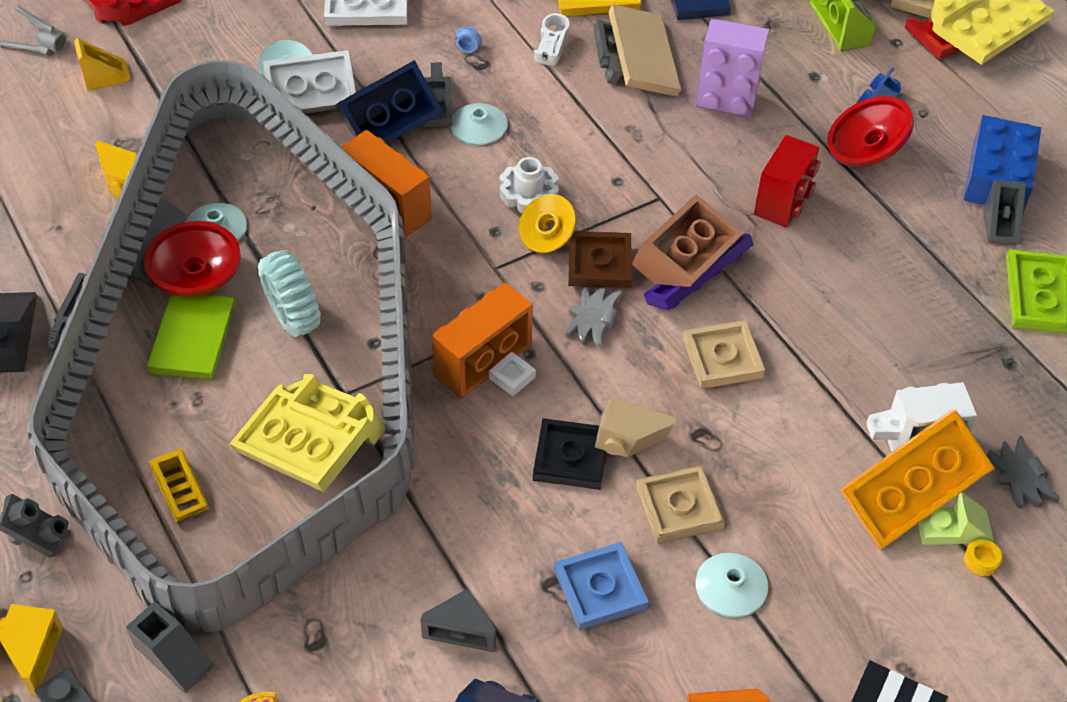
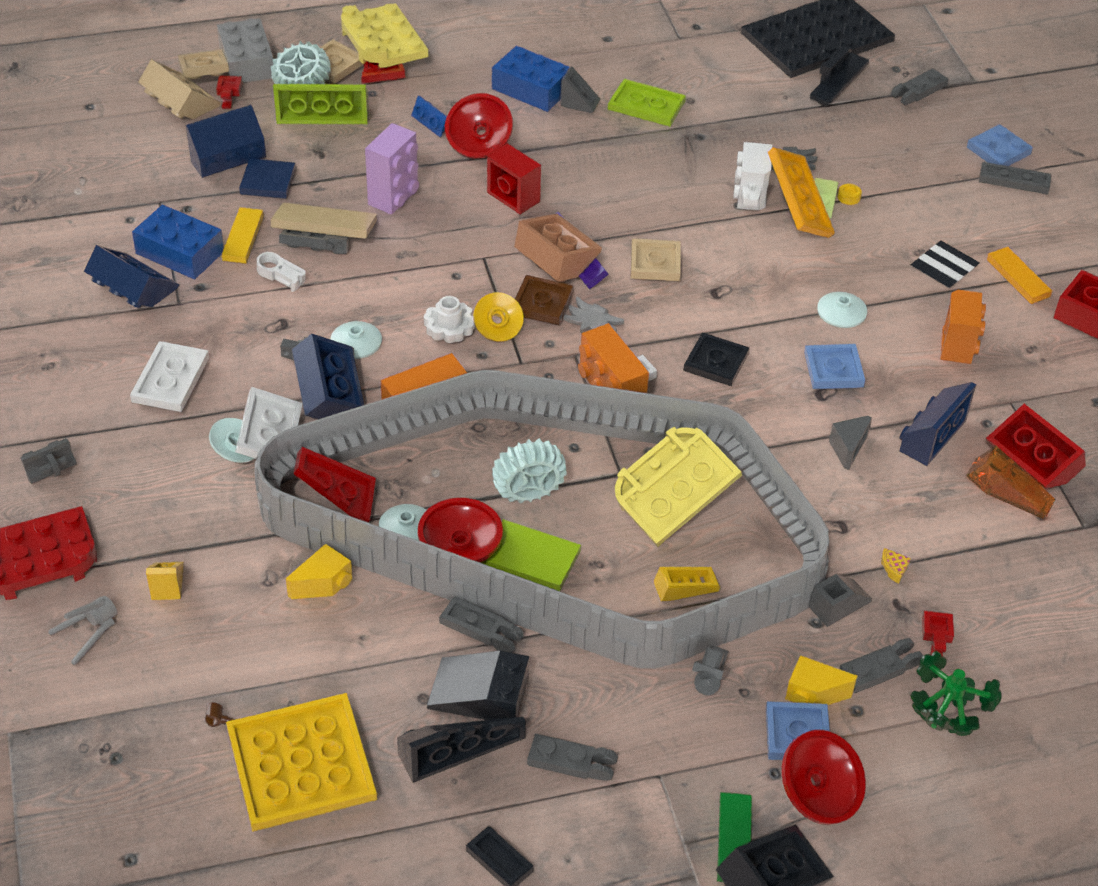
camera: 75 degrees left, 5 degrees down
(238, 149) = (337, 482): none -> red wing
(465, 44) = (254, 321): light blue plate -> none
(631, 428) = (714, 317): tan slope -> none
(679, 504) = (774, 316): tan tile -> none

